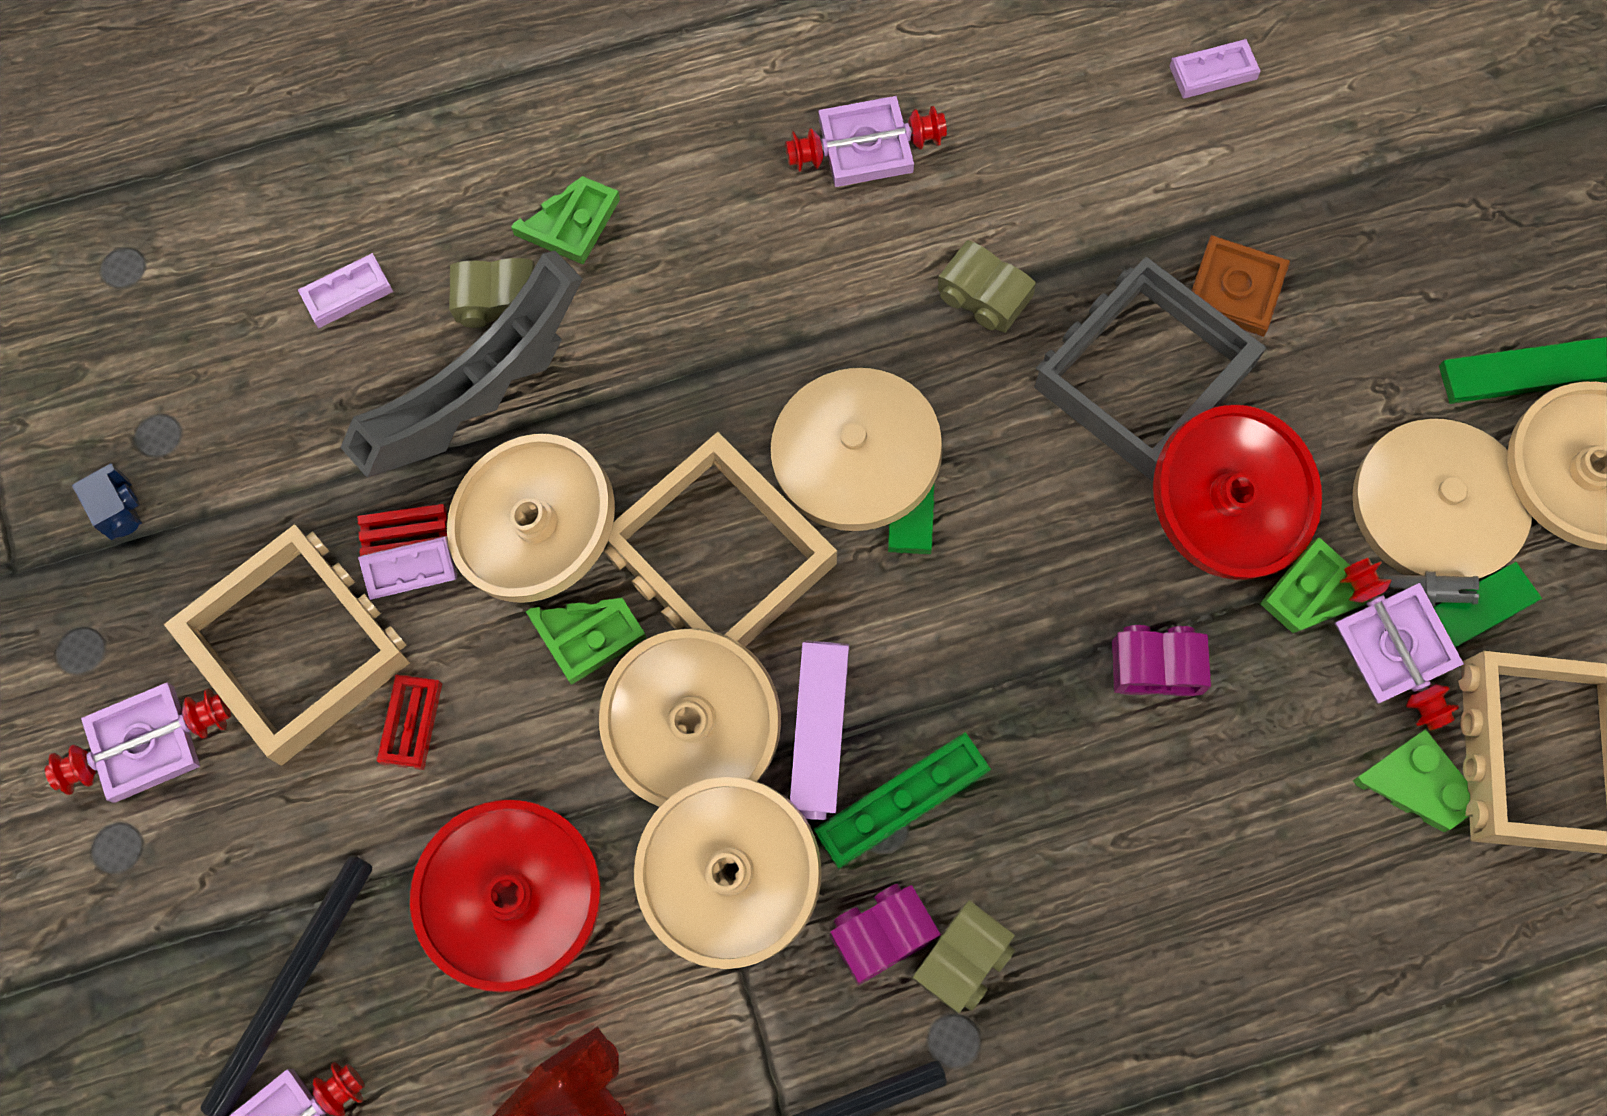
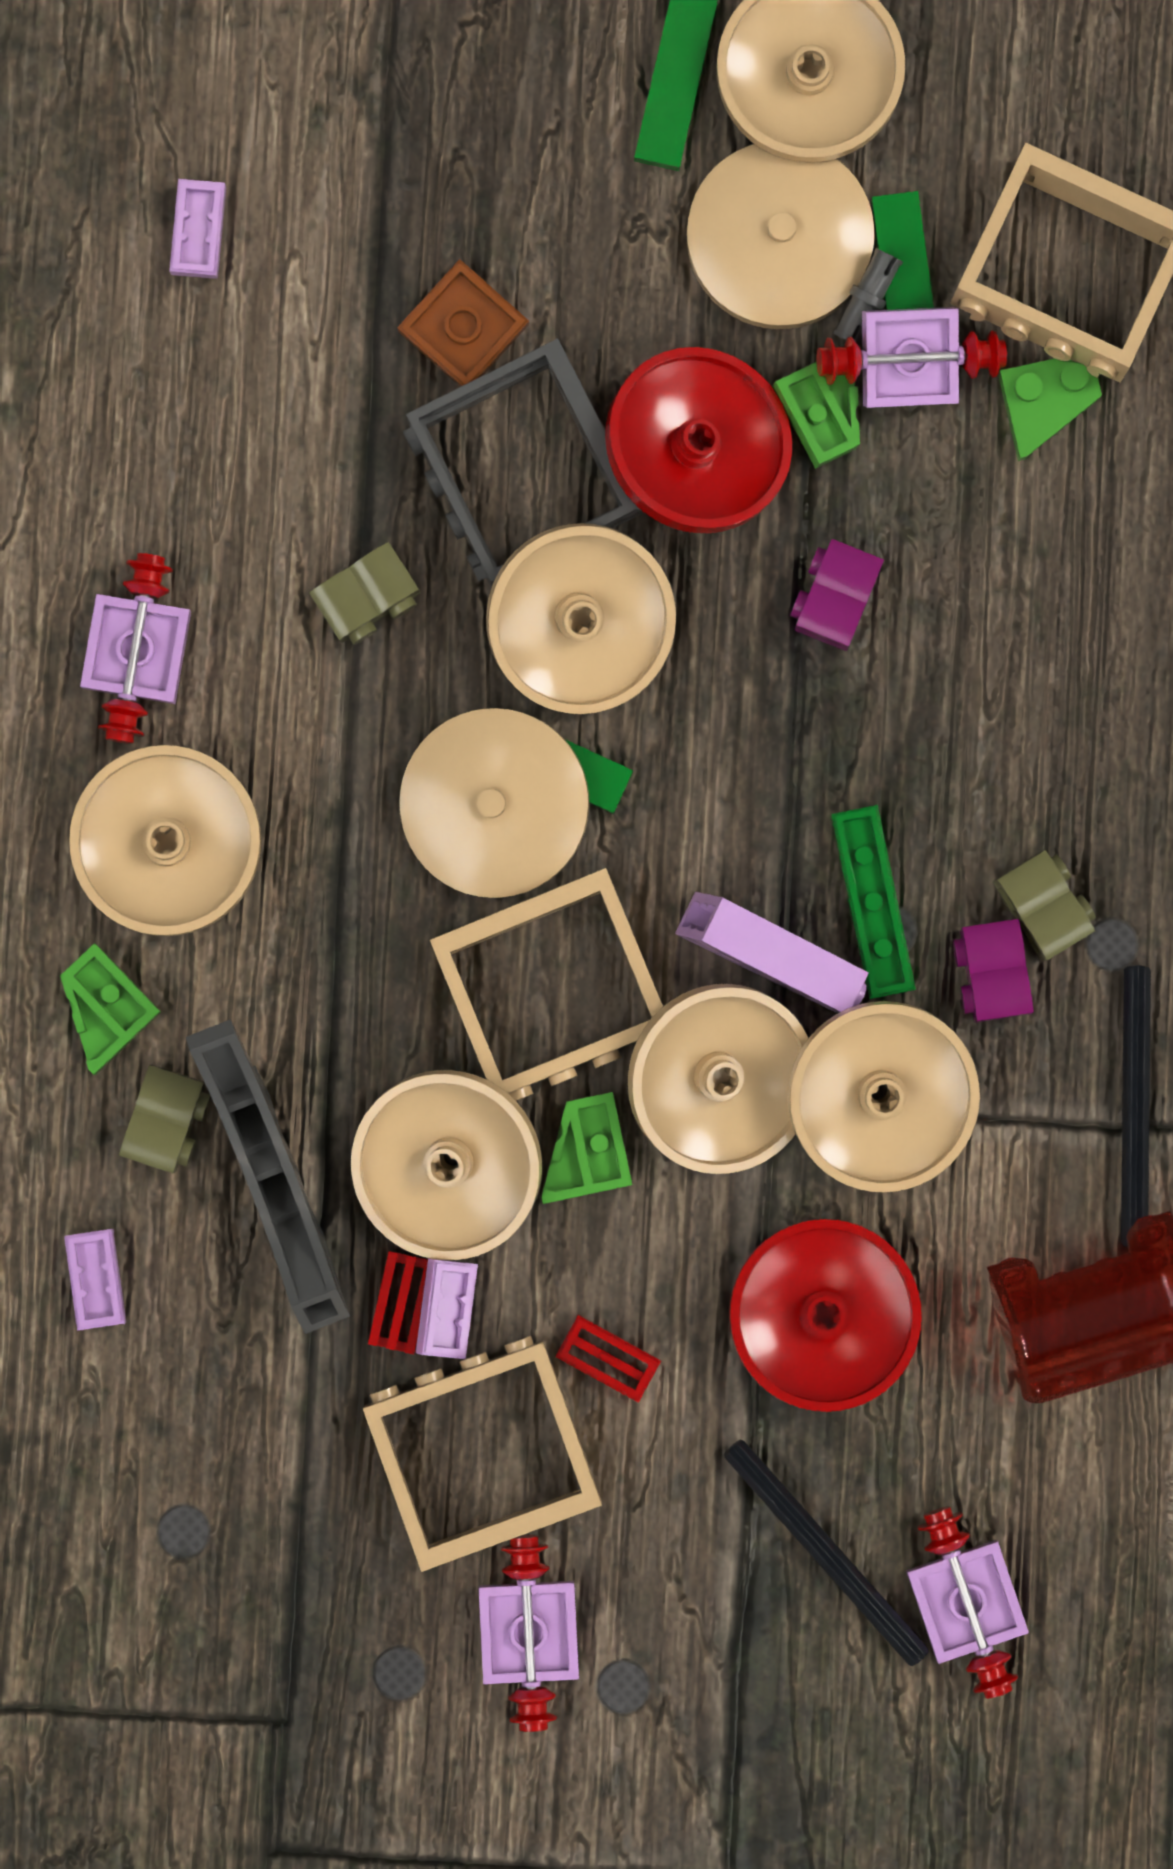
camera: 75 degrees left, 15 degrees up
(109, 502) = (254, 1597): brick -> none
(720, 209) = (165, 840): none -> tan dish
(1042, 453) = (580, 618): none -> tan dish

